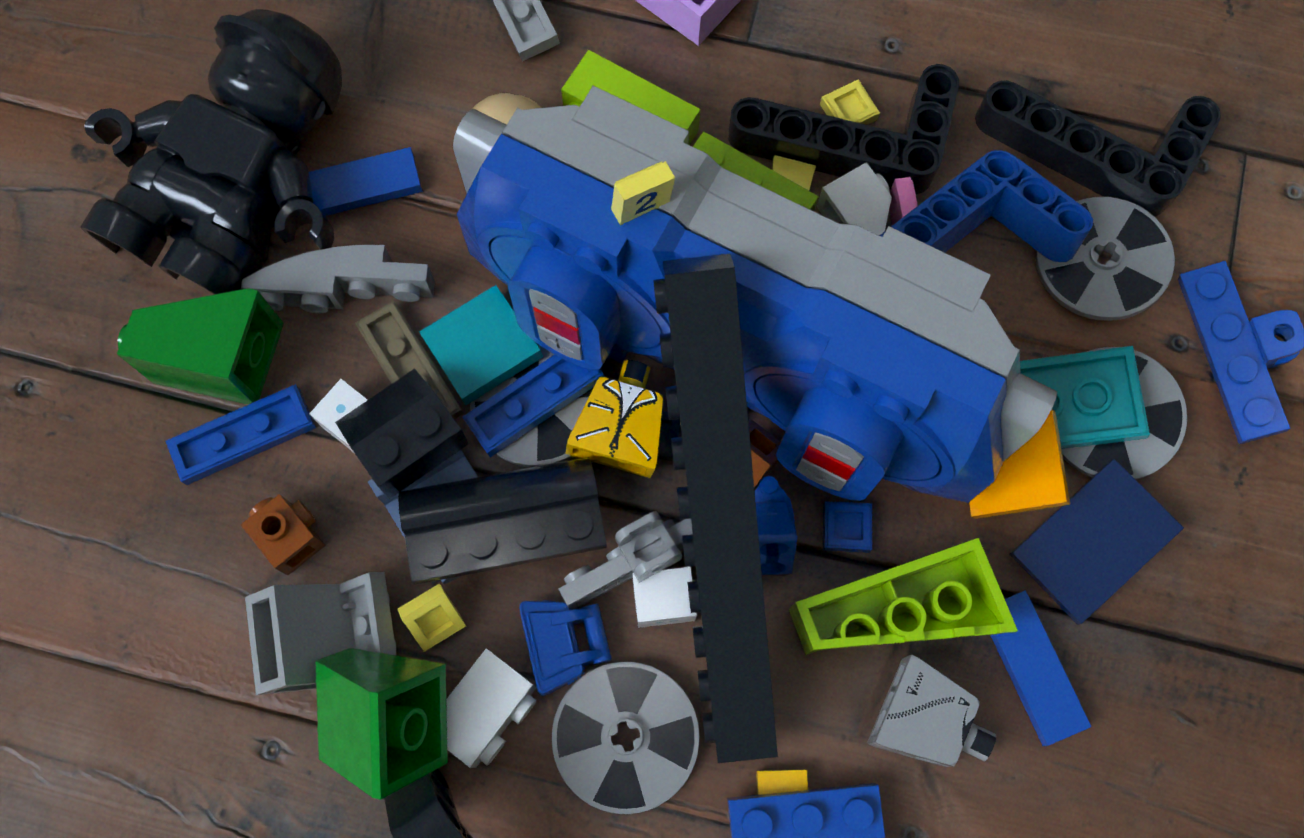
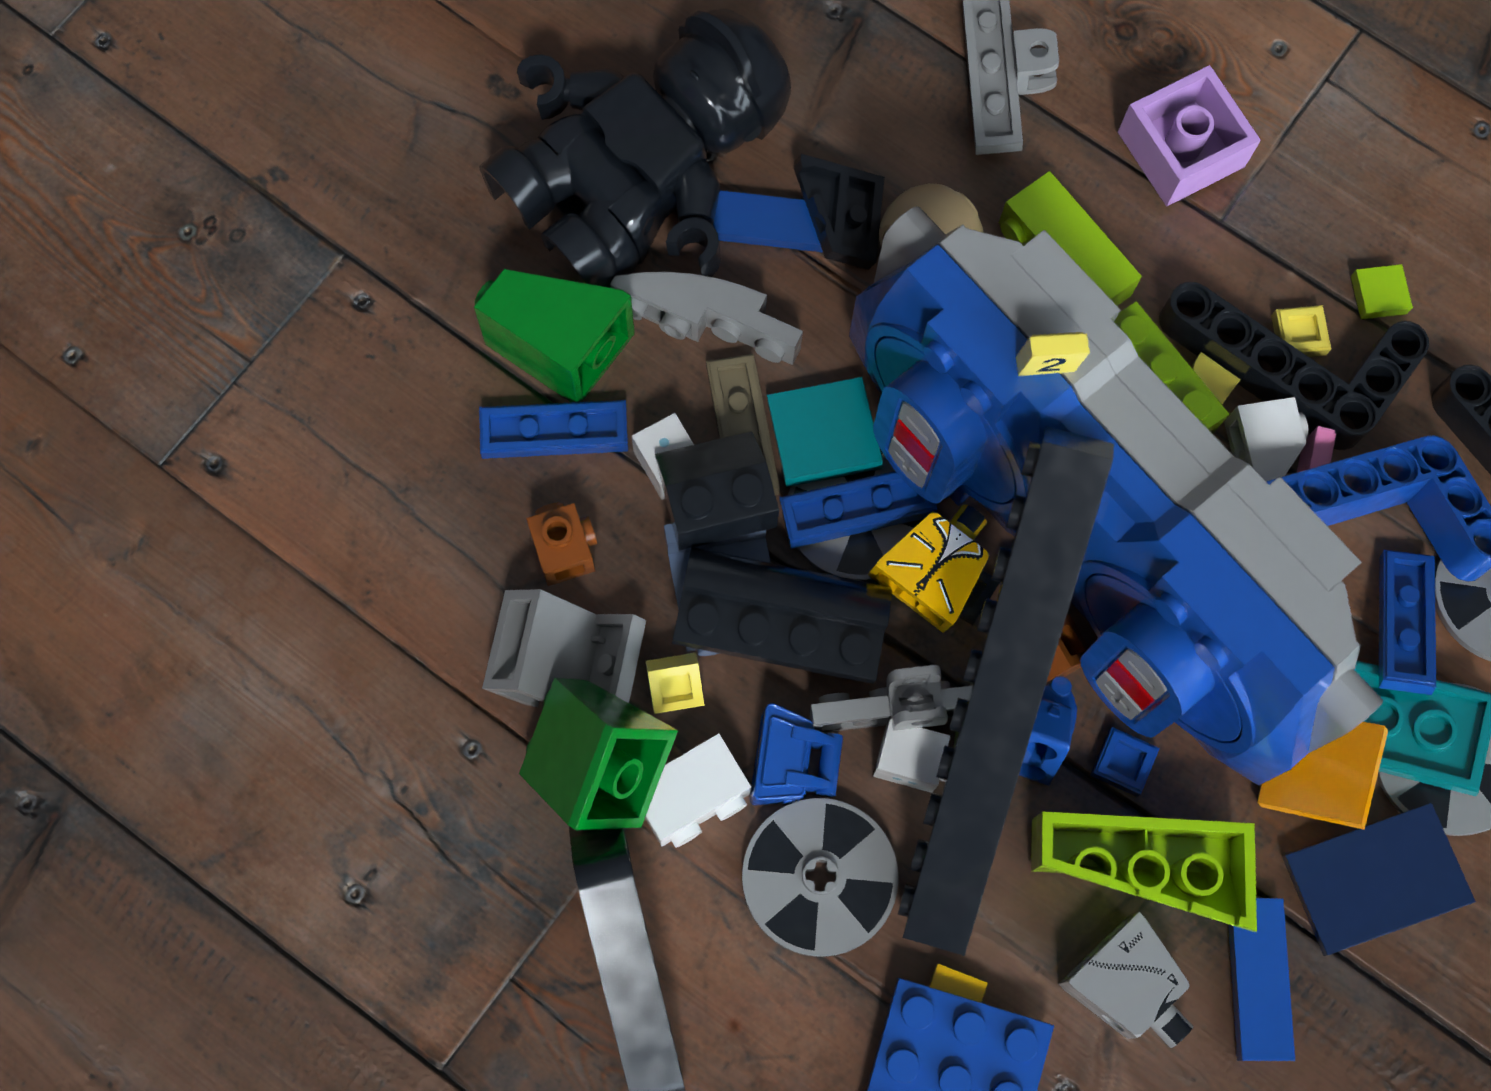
camera: 20 degrees right, 0 degrees up
(421, 145) = (843, 209): none -> black wing
(901, 50) = (1381, 291): none -> lime tile
(1033, 315) = (1407, 622): none -> blue tile

